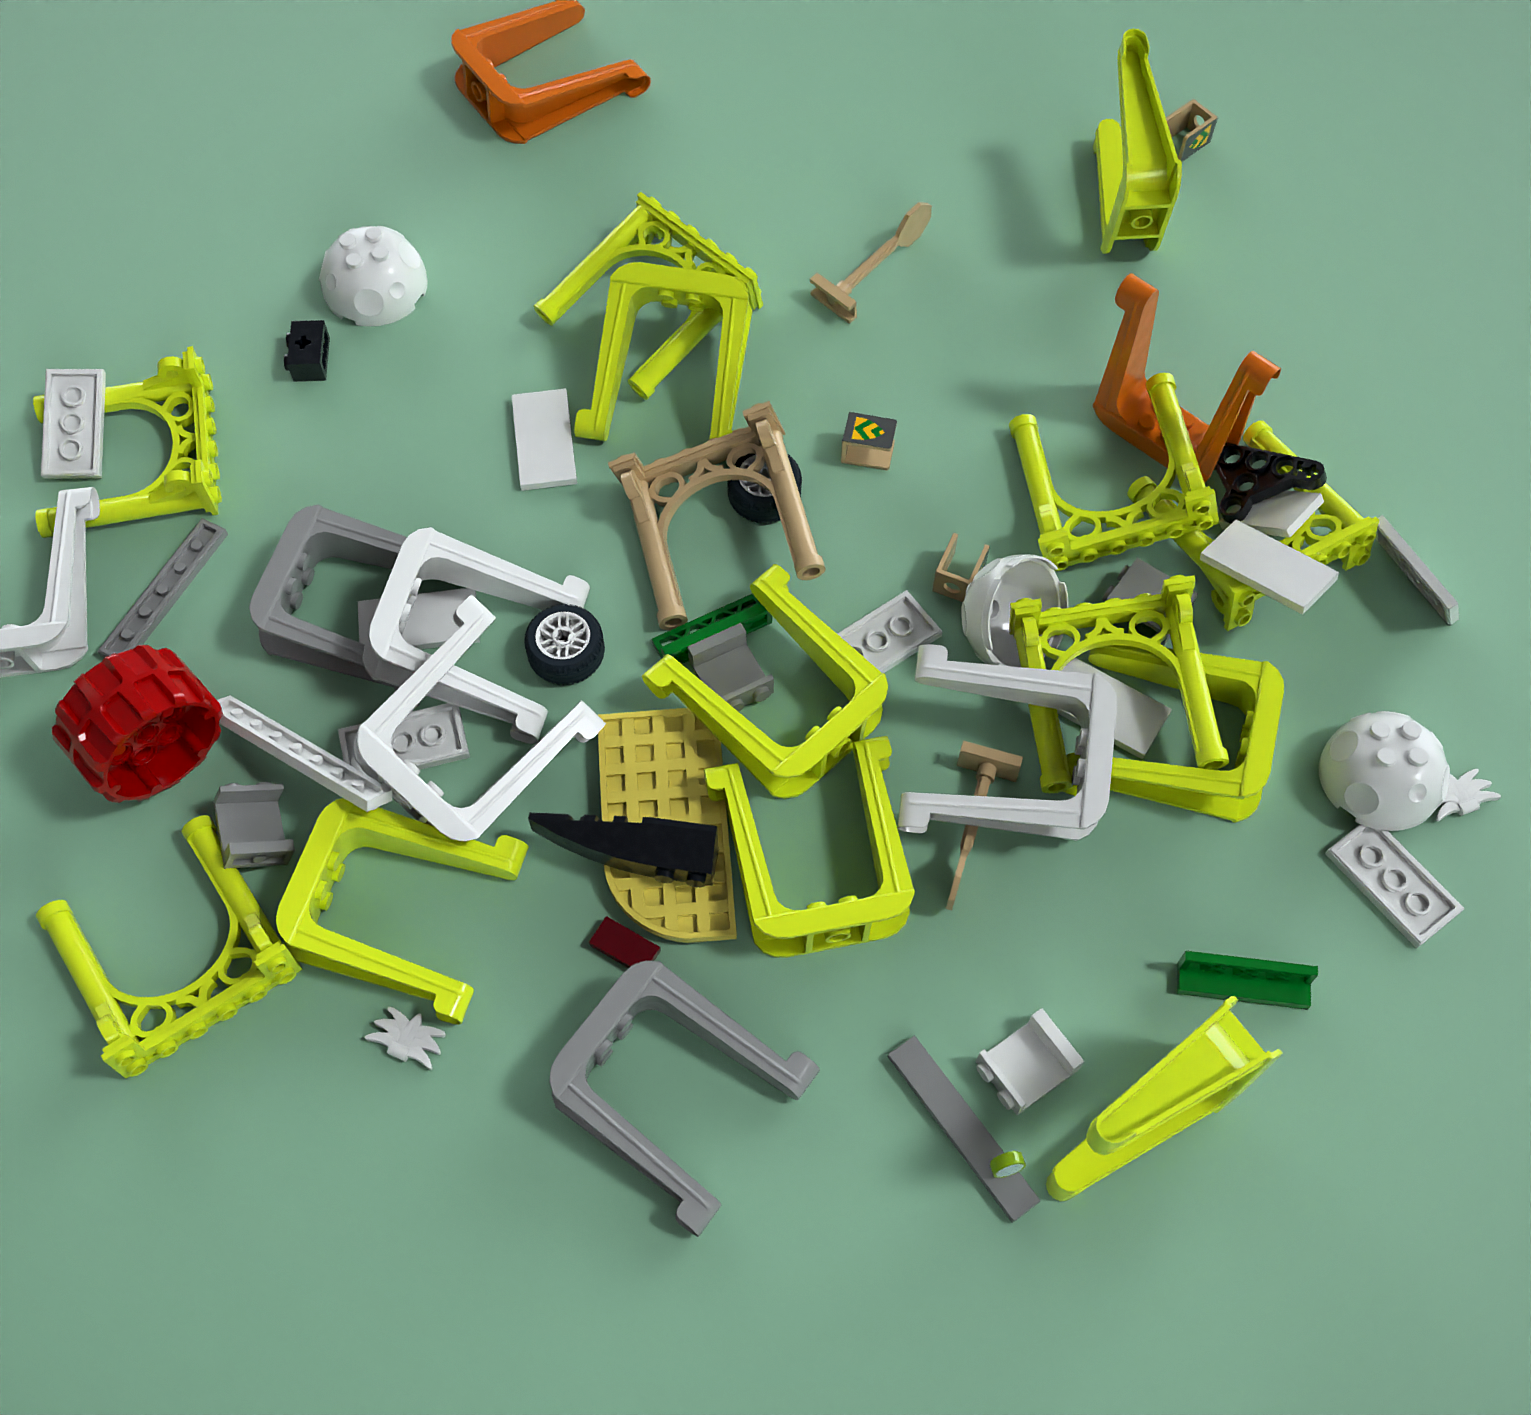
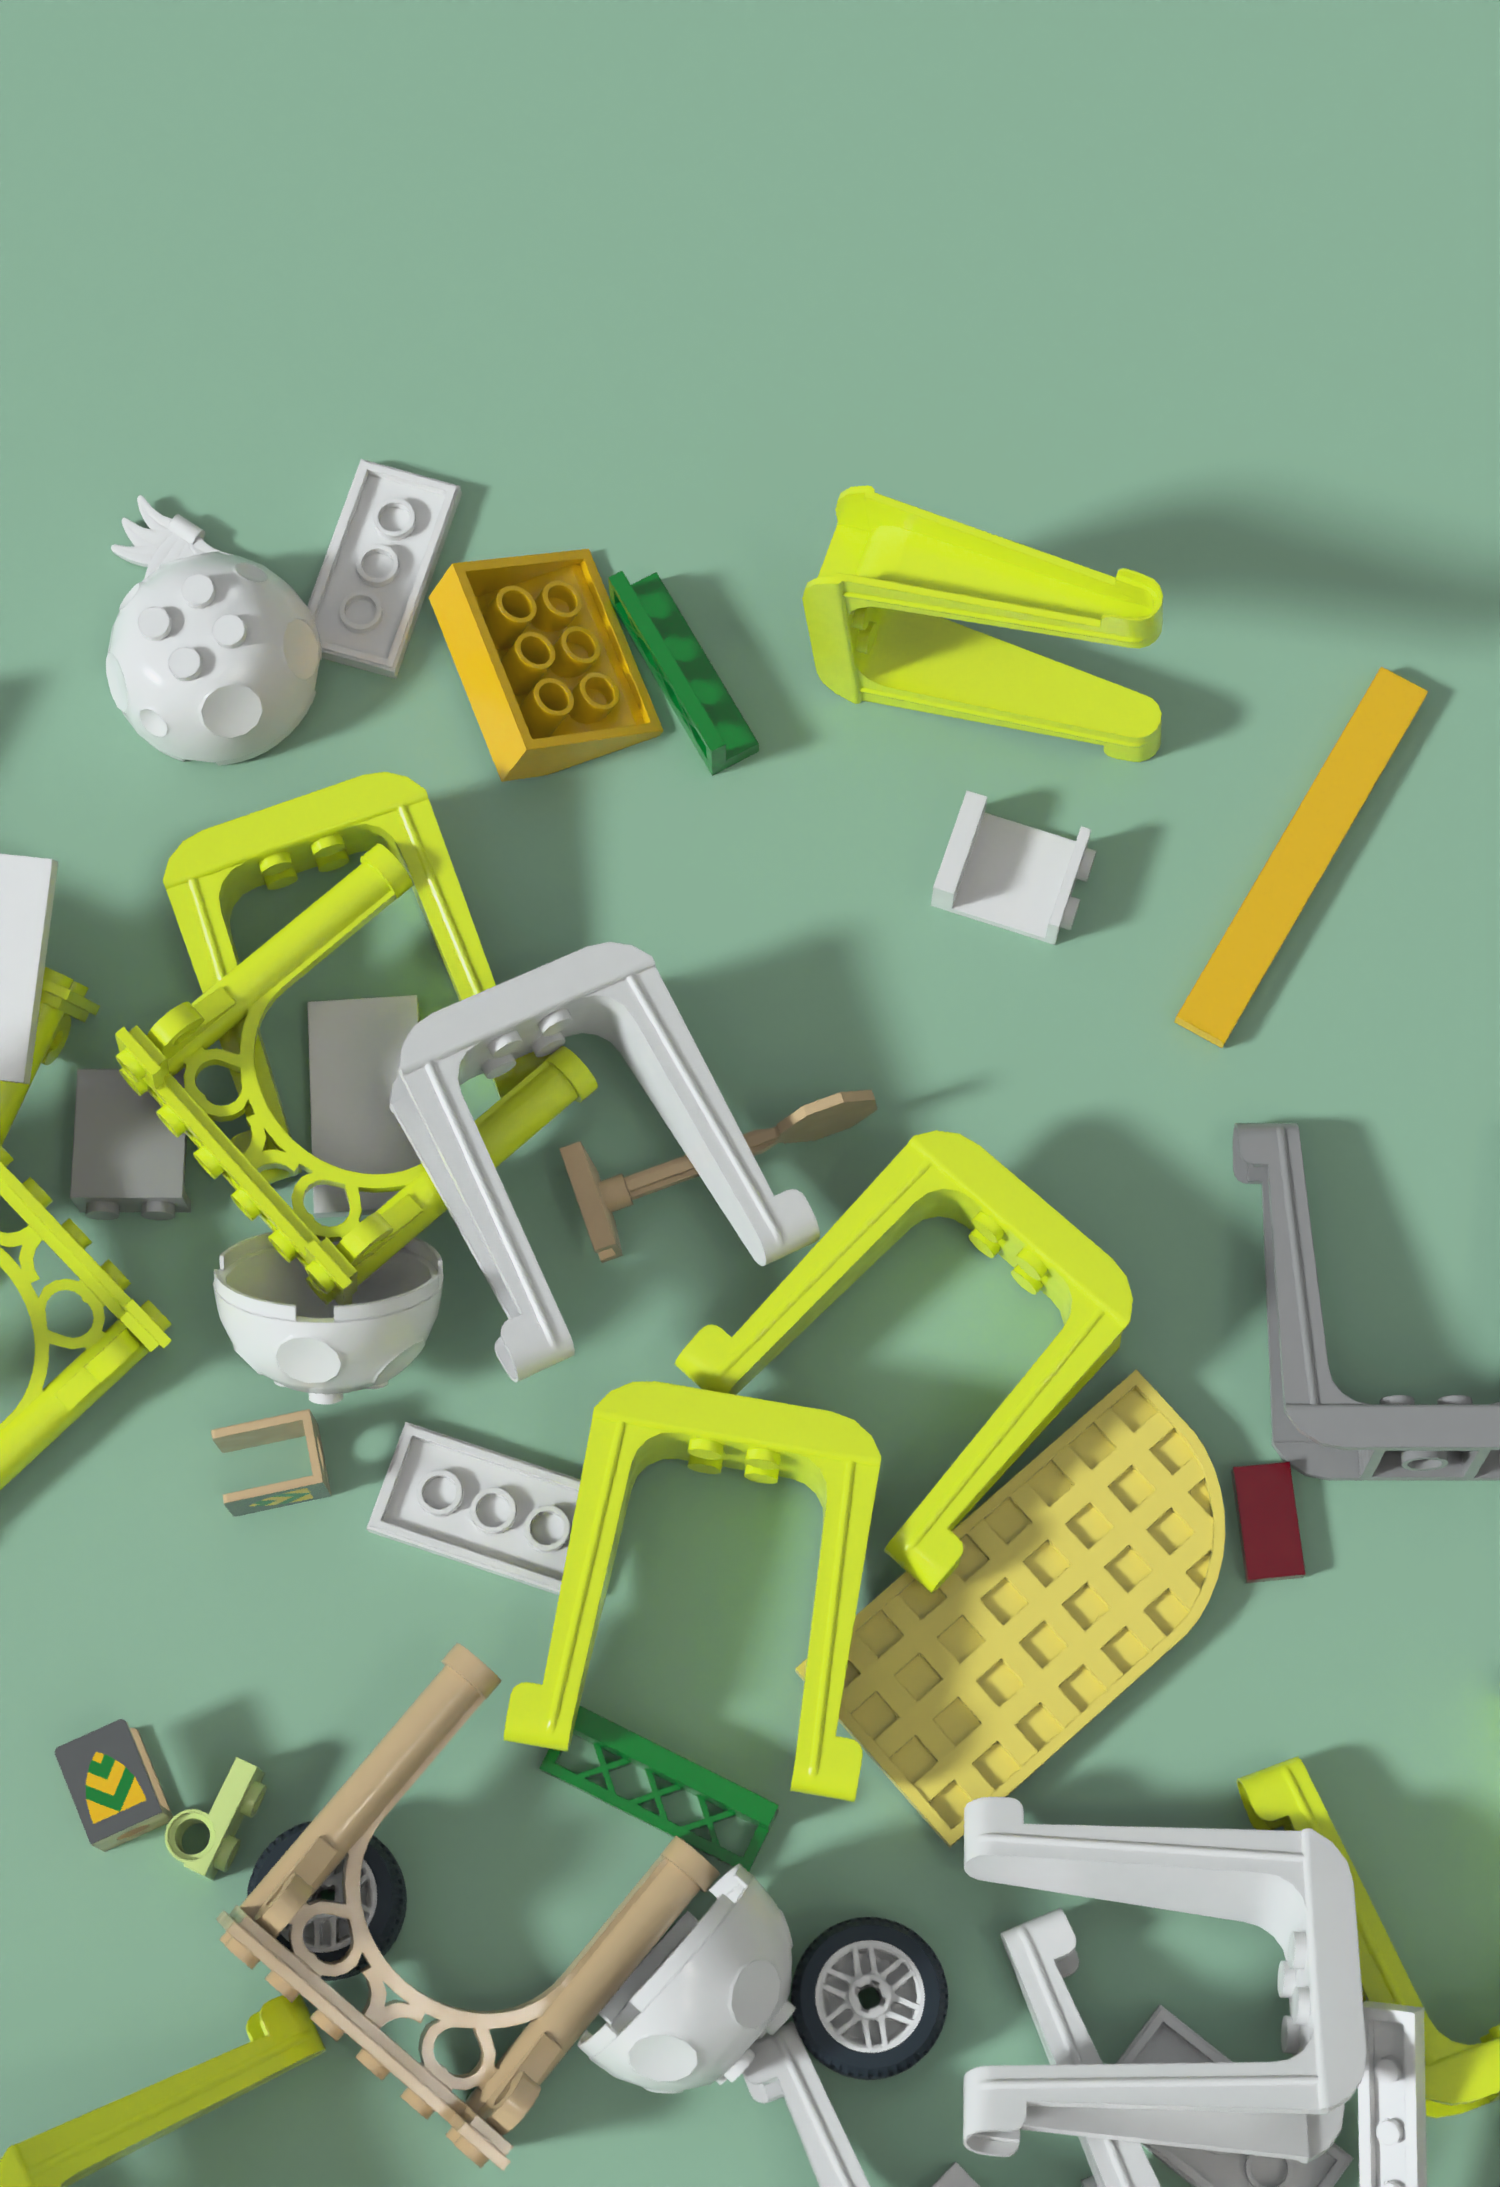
camera: 125 degrees left, 10 degrees up
(610, 570) = (701, 1995): none -> white rock
(651, 848) = (1132, 1594): black wedge -> none
(730, 668) = (719, 1693): light grey panel -> none
(826, 469) = (238, 1797): none -> yellowish green plate
(940, 1224) = (1301, 857): none -> yellow tile
(961, 1126) = (1160, 902): light grey tile -> none
(1007, 1164) = (1177, 802): lime tile -> none
(1291, 918) = (543, 661): none -> yellow slope

